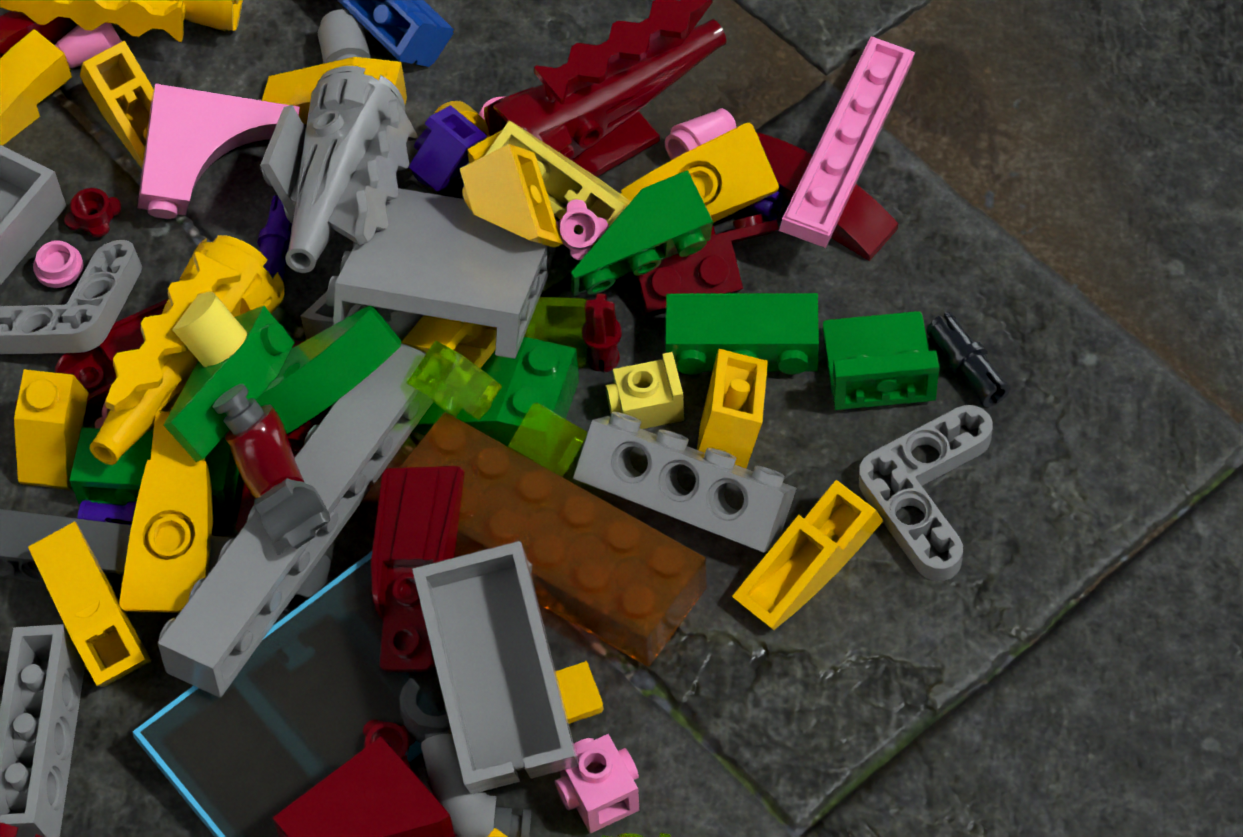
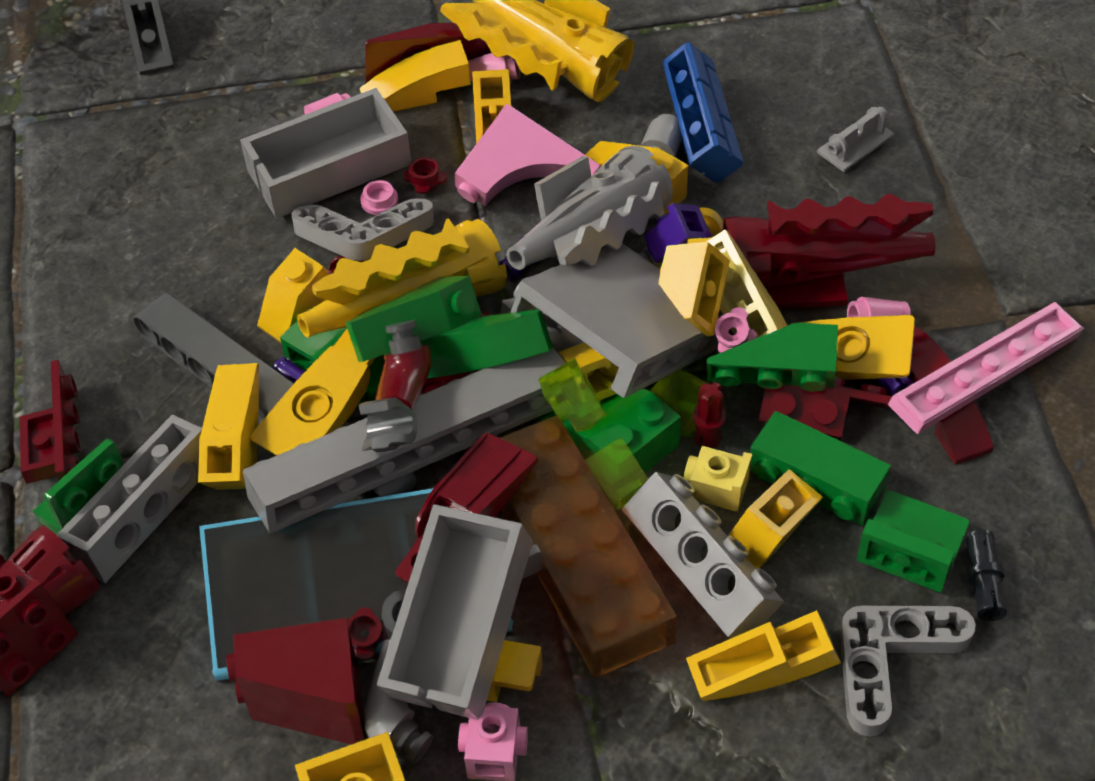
camera: 30 degrees right, 5 degrees down
(210, 330) = (417, 272): light yellow brick -> none

